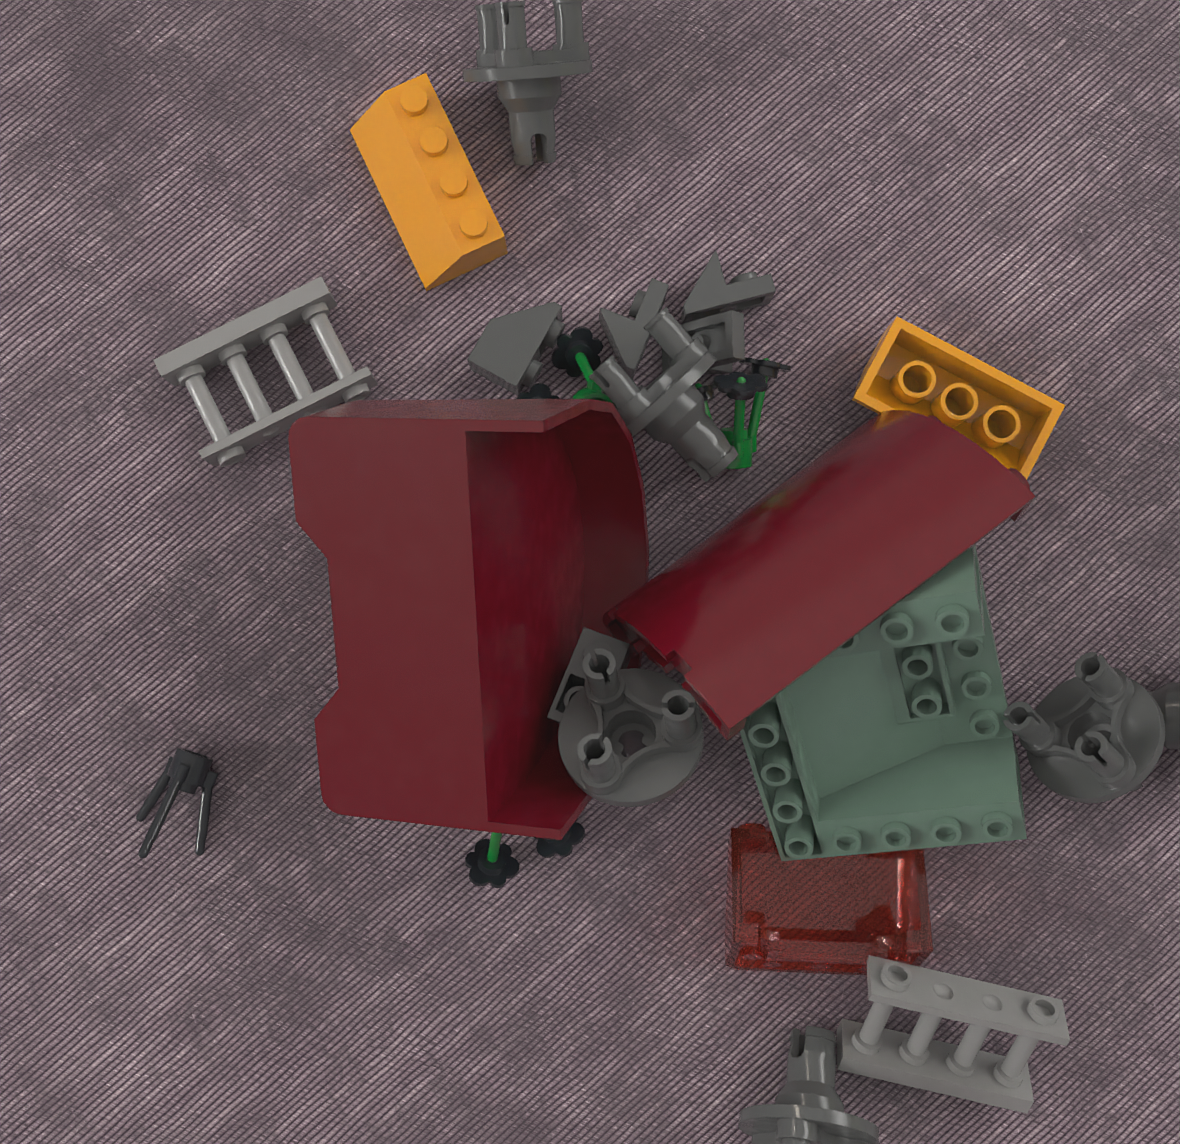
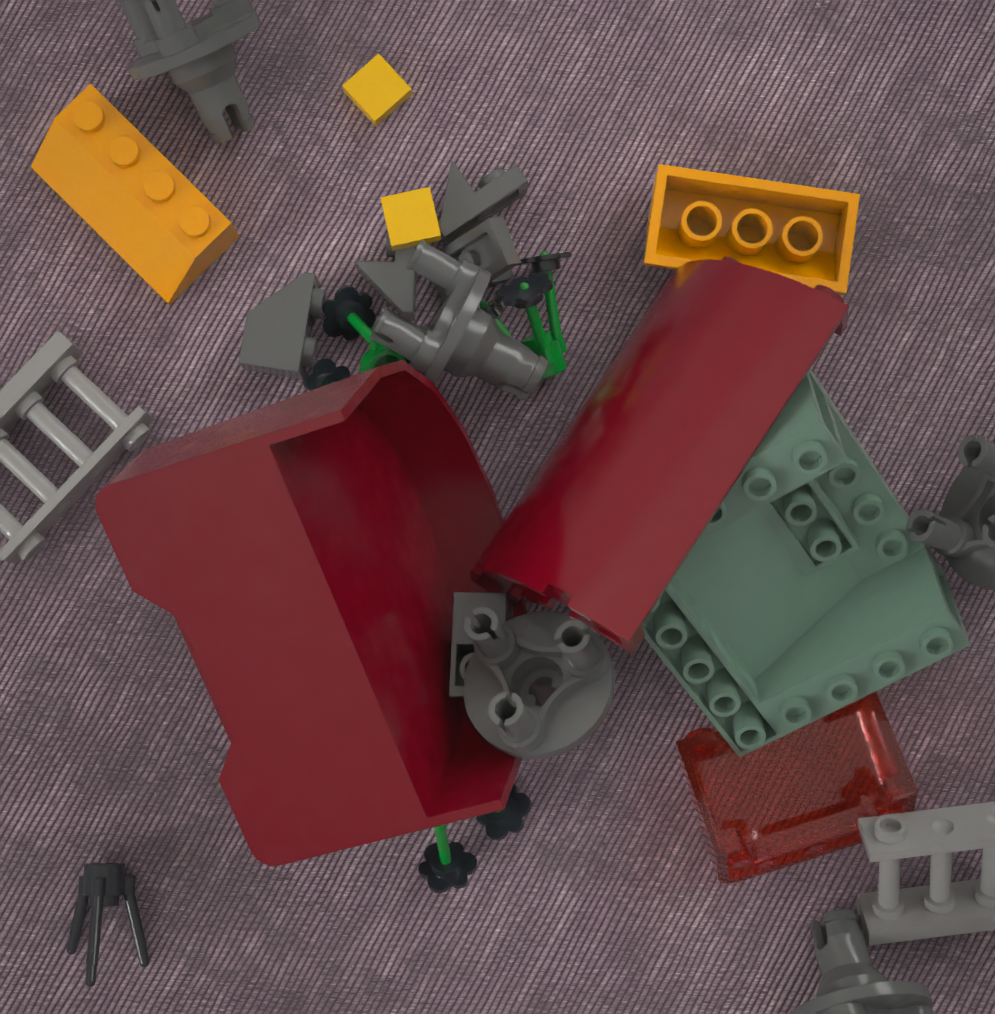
camera: 15 degrees left, 0 degrees up
(662, 286) = (410, 218): none -> yellow tile
(671, 168) = (377, 90): none -> yellow tile

